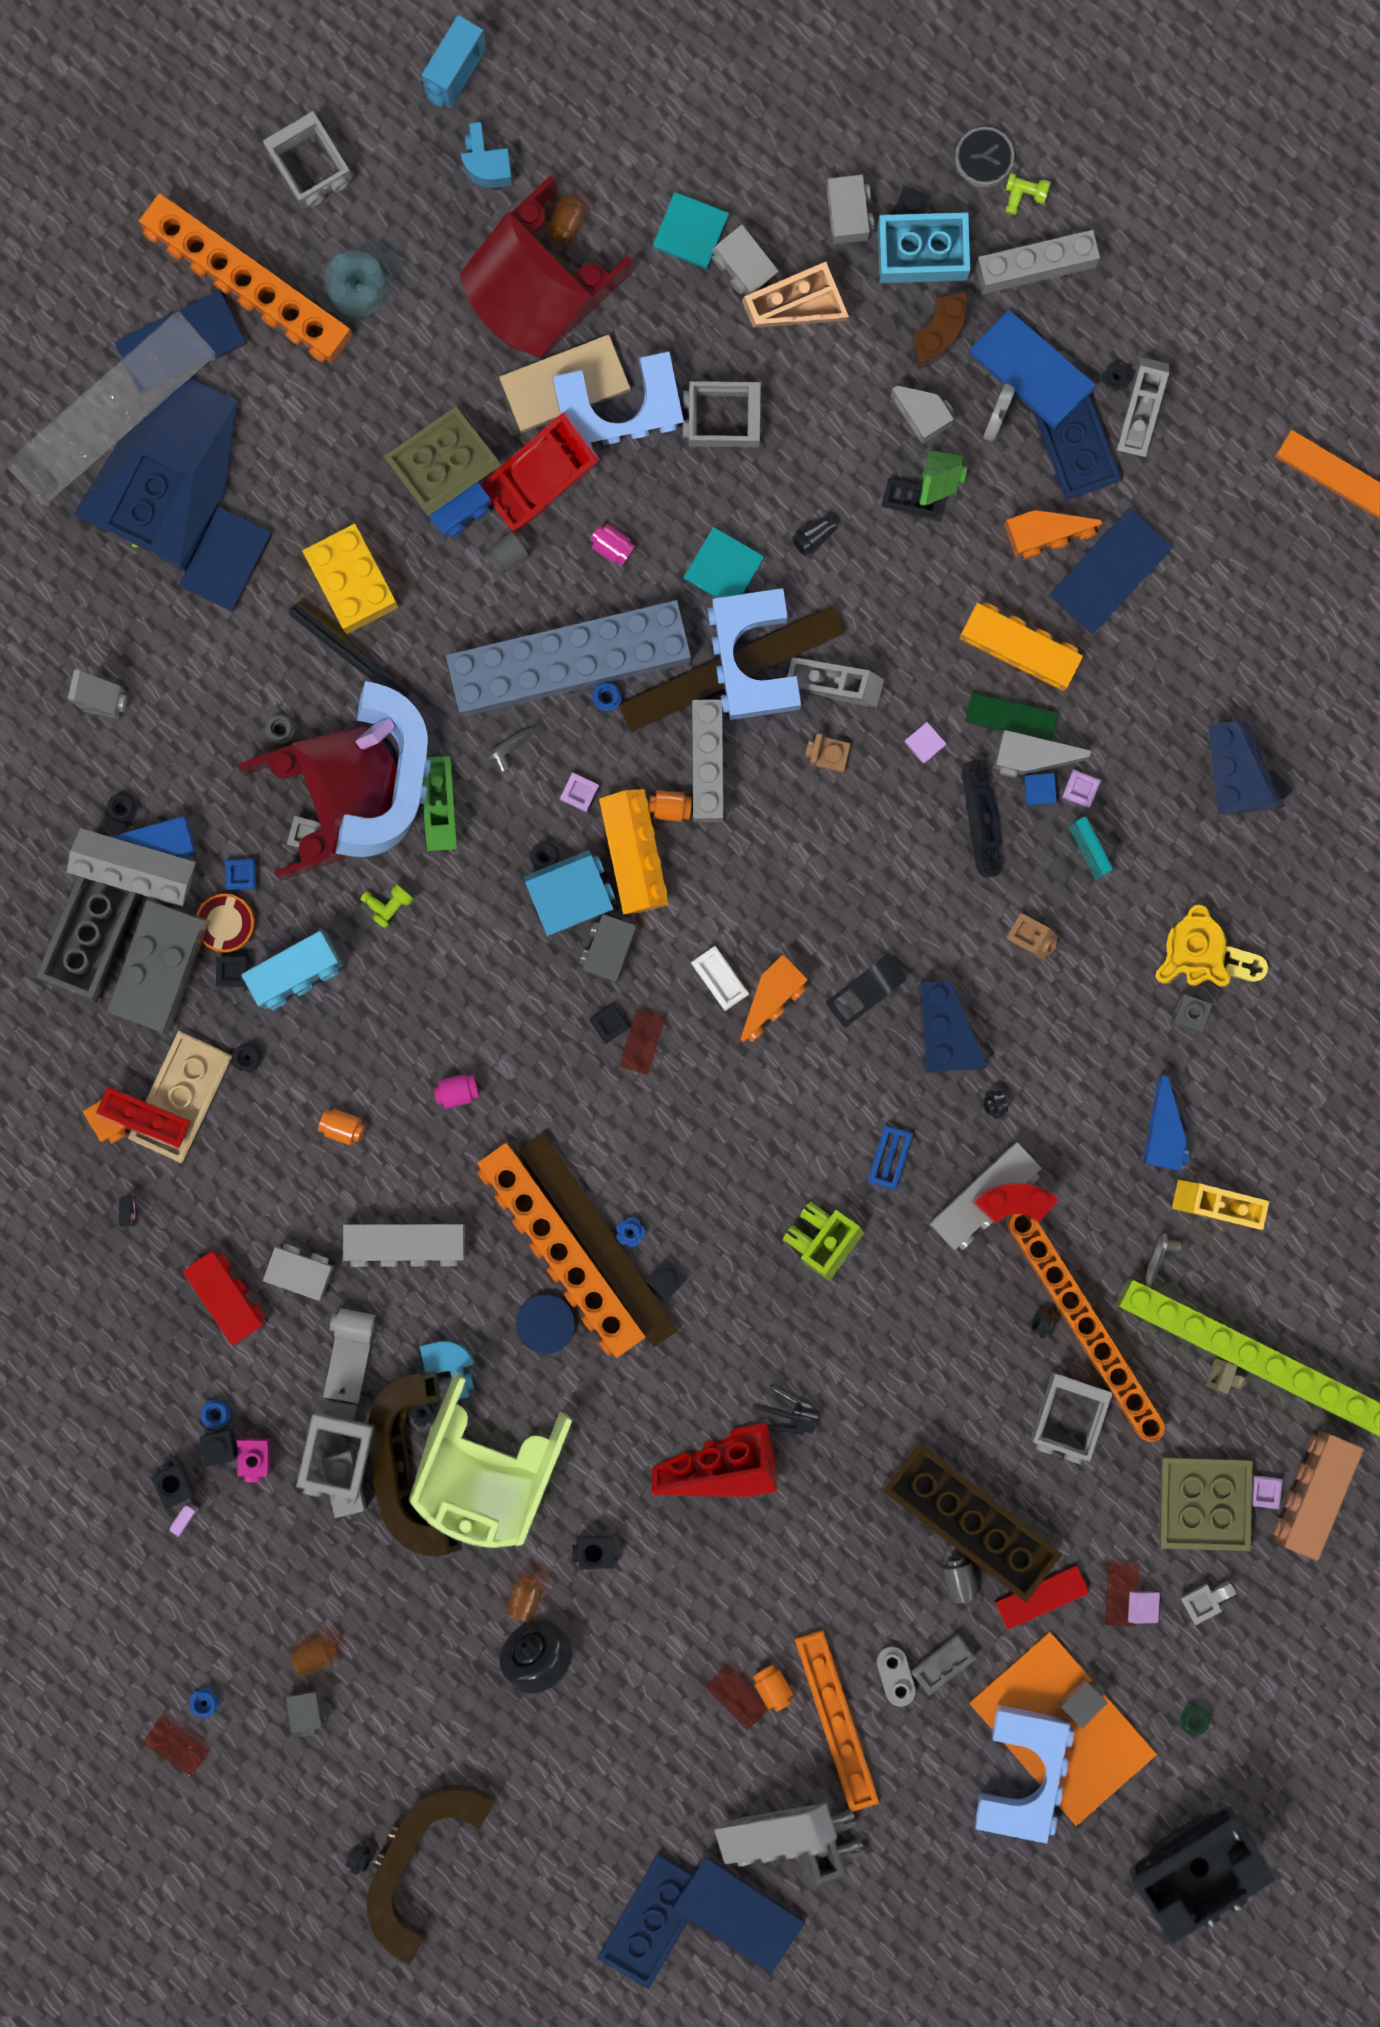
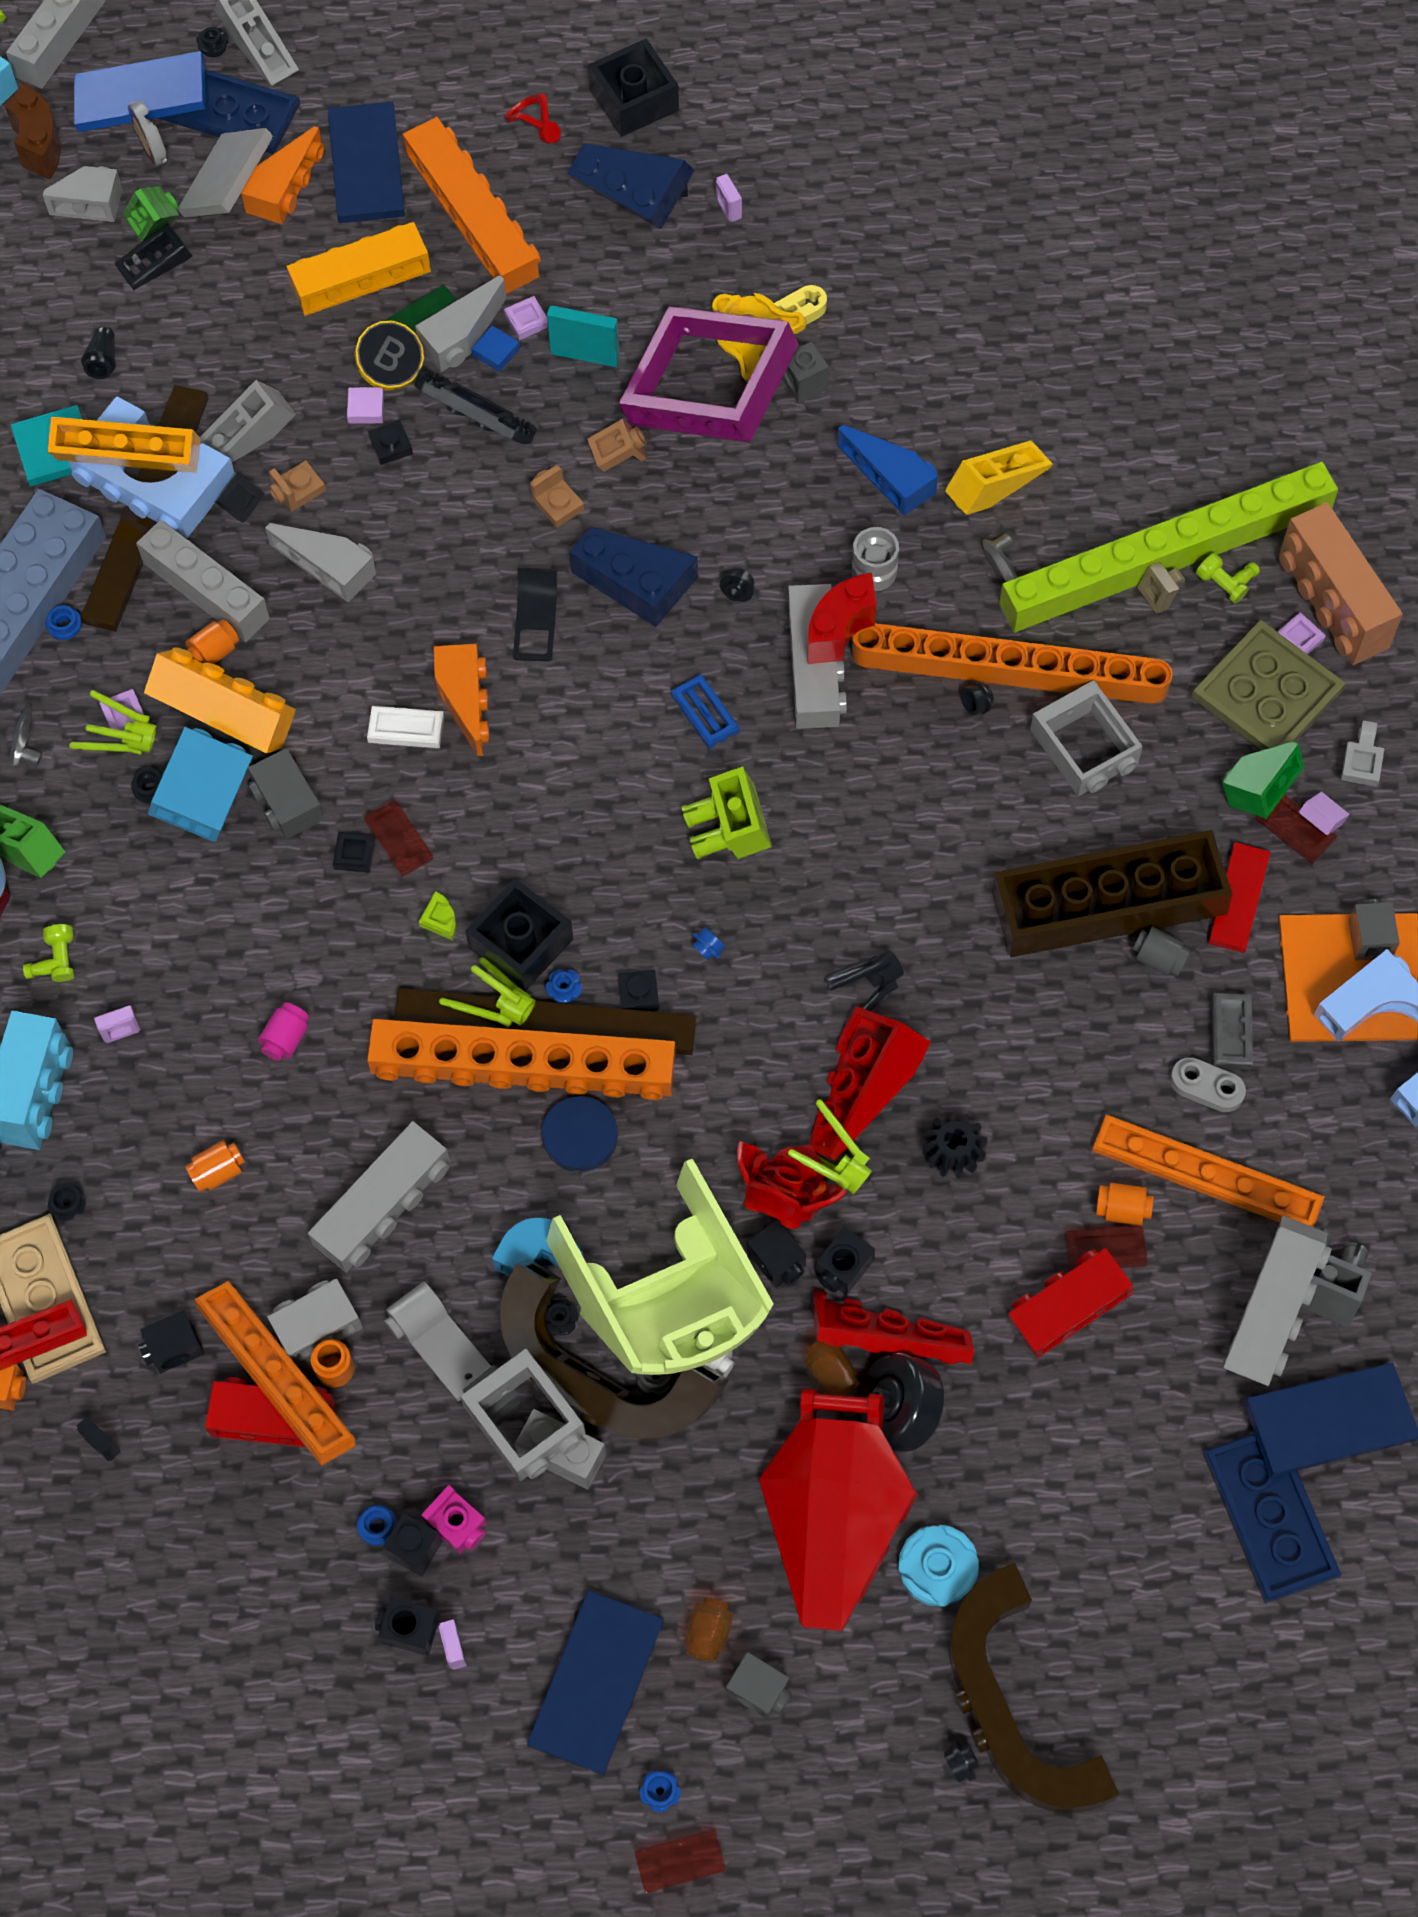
camera: 45 degrees left, 20 degrees down
(215, 1200) = (170, 1342): none -> black brick
(233, 1615) = (595, 1683): none -> dark blue tile
(246, 1281) = (275, 1373): none -> orange tile
(281, 1307) = (332, 1363): none -> orange brick
(376, 986) = (117, 1024): none -> lavender tile
(442, 1670) = (835, 1505): none -> red windscreen
(466, 1745) = (932, 1578): none -> medium azure tile
(563, 1600) = (888, 1331): none -> red wing
(566, 1509) = (777, 1255): none -> black brick
(568, 819) = (137, 735): none -> lime plant
(588, 1218) = (514, 1002): none -> lime plant
(611, 1115) = (439, 917): none -> lime tile
(612, 1480) = (784, 1185): none -> red brick
(636, 1181) = (520, 934): none -> black brick
(653, 1510) = (849, 1172): none -> lime plant
(680, 1707) = (1070, 1301): none -> red brick
(719, 1565) = (966, 1153): none -> black gear
(731, 1297) = (708, 944): none -> blue plate
(744, 637) = (124, 444): none -> light orange brick
(786, 727) = (239, 497): none -> black plate
(792, 828) = (326, 557): none -> light grey slope
(911, 784) = (390, 442): none -> black plate
(961, 929) = (555, 496): none -> medium nougat bracket
(971, 728) = (389, 355): none -> black tile
(1016, 490) = (225, 173): none -> light grey tile
(1087, 1178) = (876, 553): none -> light grey wheel
(1133, 1552) = (1263, 778): none -> green slope
(1134, 675) = (471, 205): none -> orange brick
(1148, 1005) = (700, 418): none -> magenta window
(1240, 674) = (548, 130): none -> red piece
(1266, 1420) = (1235, 586): none -> lime piece
(1286, 845) = (728, 198): none -> lavender tile
(1319, 706) = (634, 87): none -> black brick

